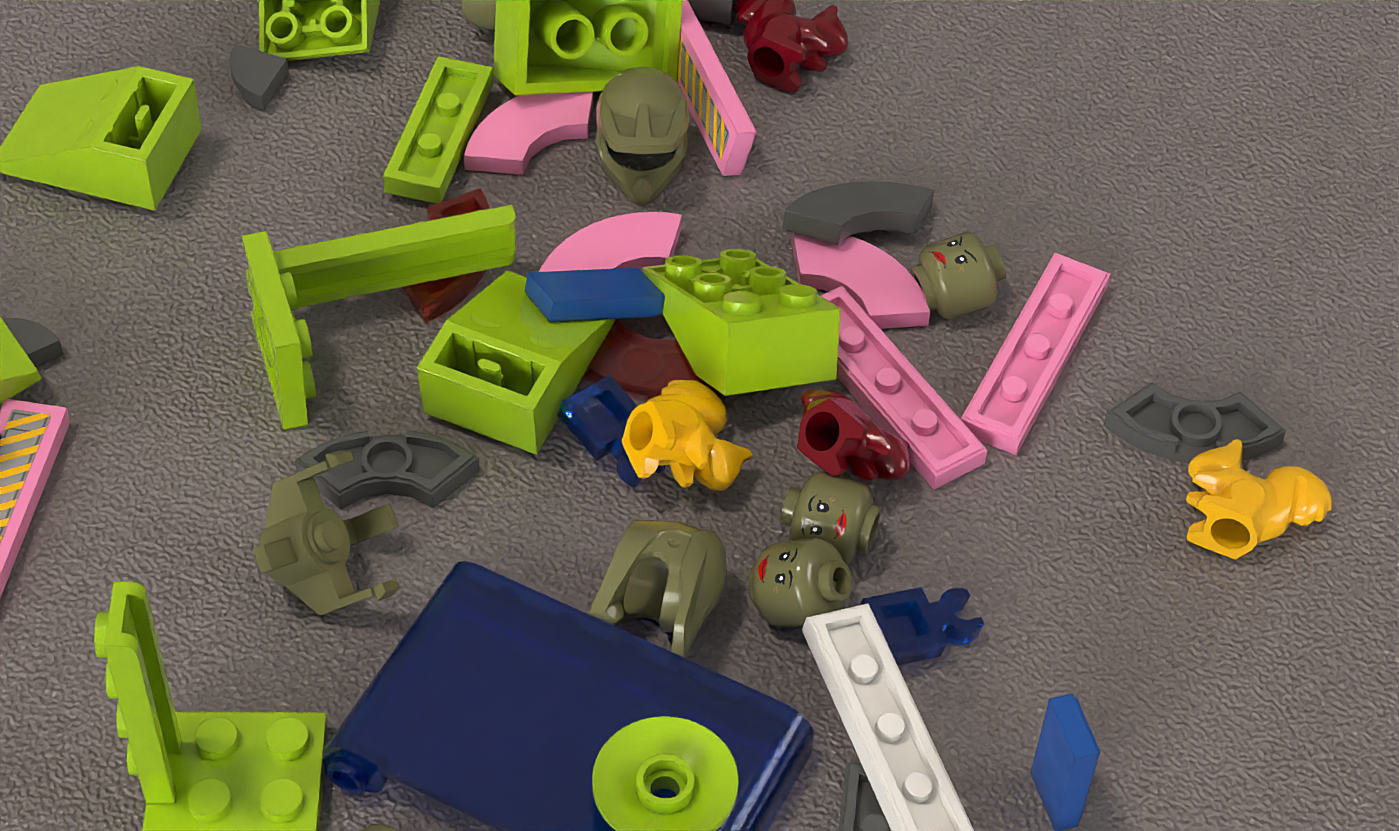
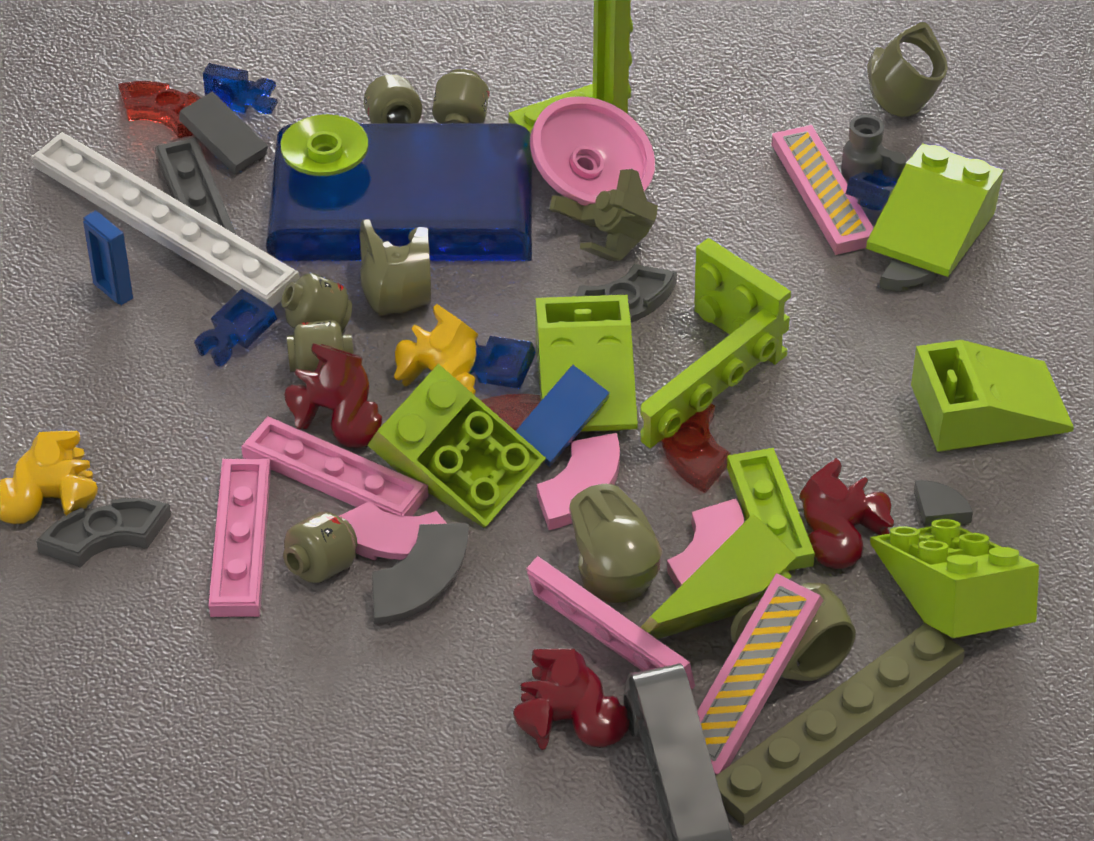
camera: 155 degrees right, 5 degrees down
(272, 651) = (585, 144): none -> bright pink dish
(369, 100) = (833, 512): none -> dark red animal

